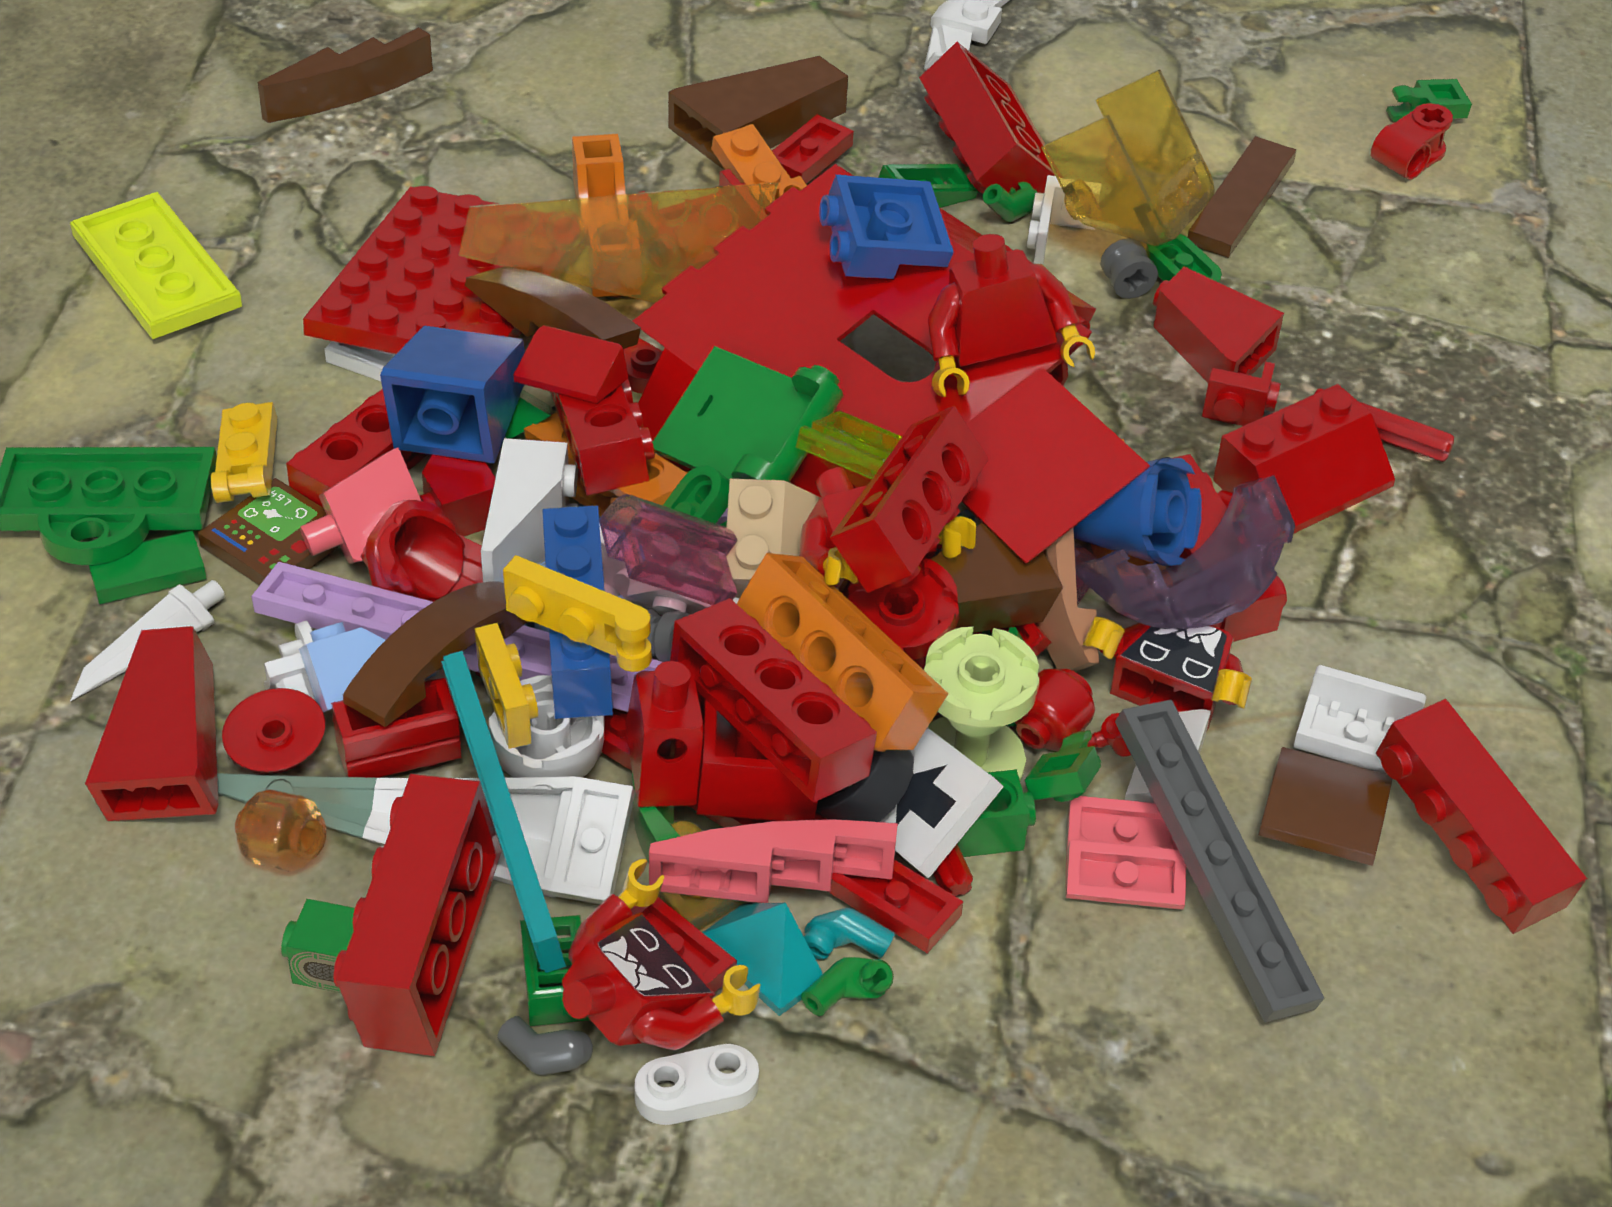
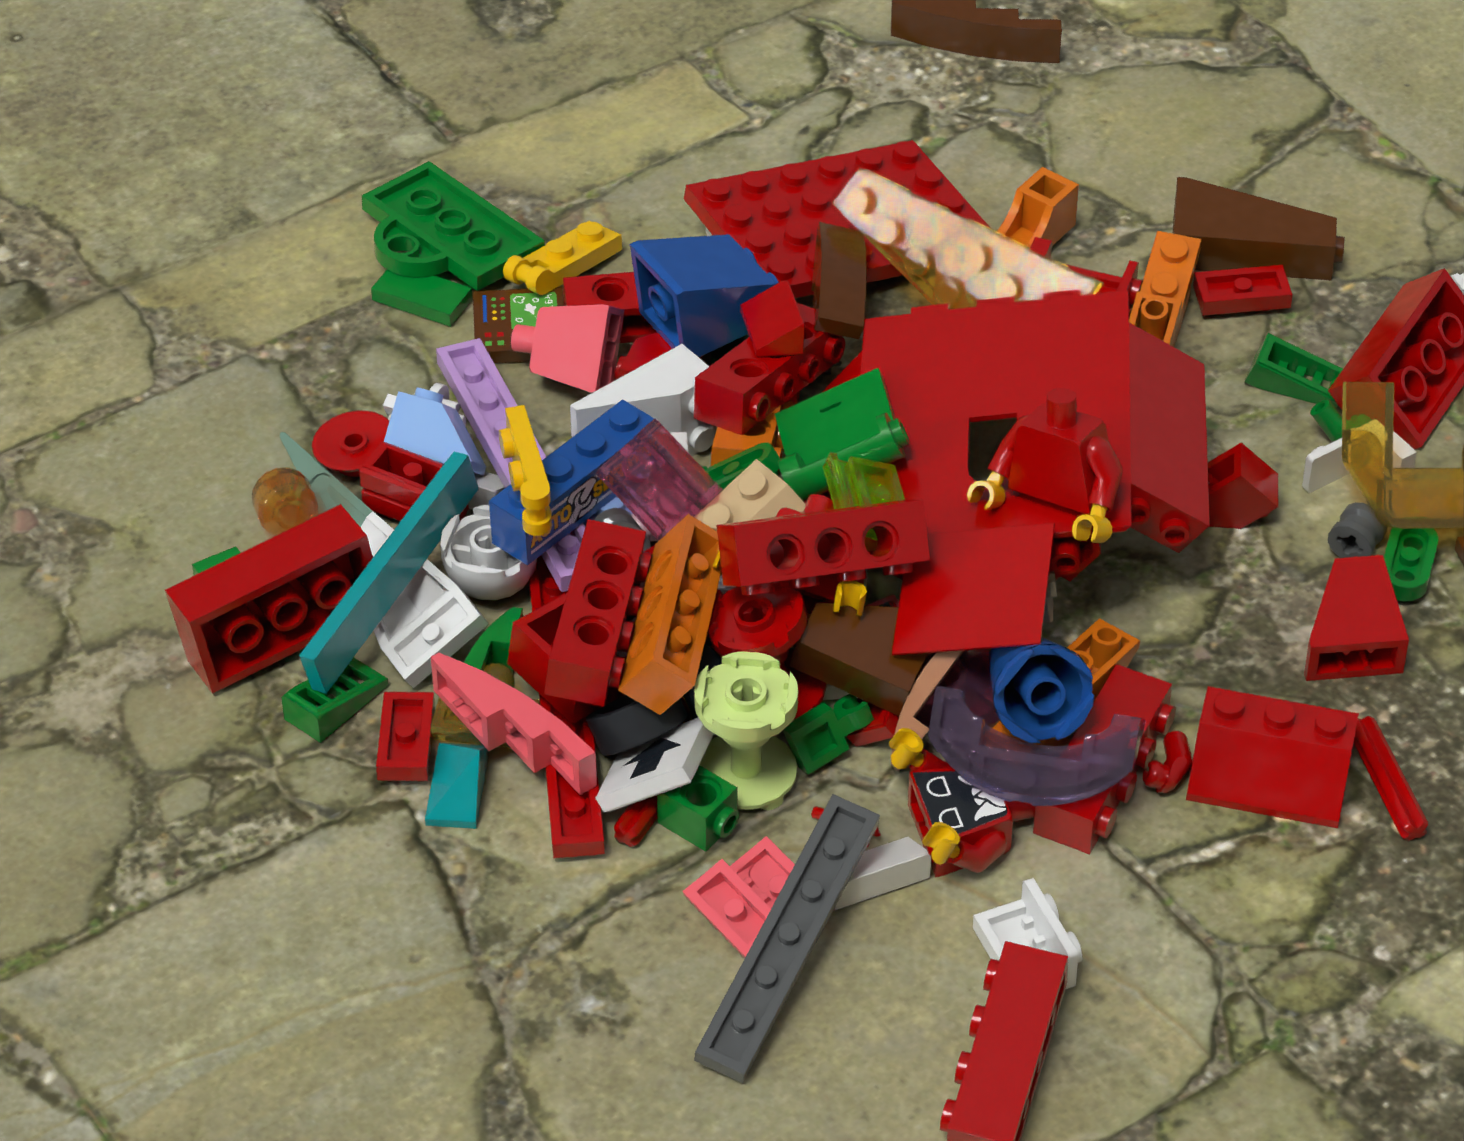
camera: 50 degrees right, 0 degrees up
(155, 265) = (675, 94): neon yellow plate -> none
(160, 733) = (296, 395): red slope -> none
(177, 609) = (391, 338): white bar -> none
(396, 671) = (420, 447): reddish brown slope -> none
(420, 552) = (547, 384): red hair -> none
(500, 672) = (469, 500): yellow plate -> none
(546, 1051) = (267, 736): dark grey arm -> none
(636, 980) = (346, 724): torso -> none
(664, 708) = (523, 585): red torso -> none
(699, 1085) = (316, 817): white plate -> none
(843, 927) = (518, 802): teal arm -> none
(848, 979) = (481, 832): green arm -> none
(884, 225) = (1080, 351): blue plate -> none
(1060, 709) = (830, 771): red head -> none
(1065, 772) = (775, 816): green plate -> none
(1240, 397) = (1295, 681): red bracket -> none
(1326, 806) = (927, 974): reddish brown slope -> none

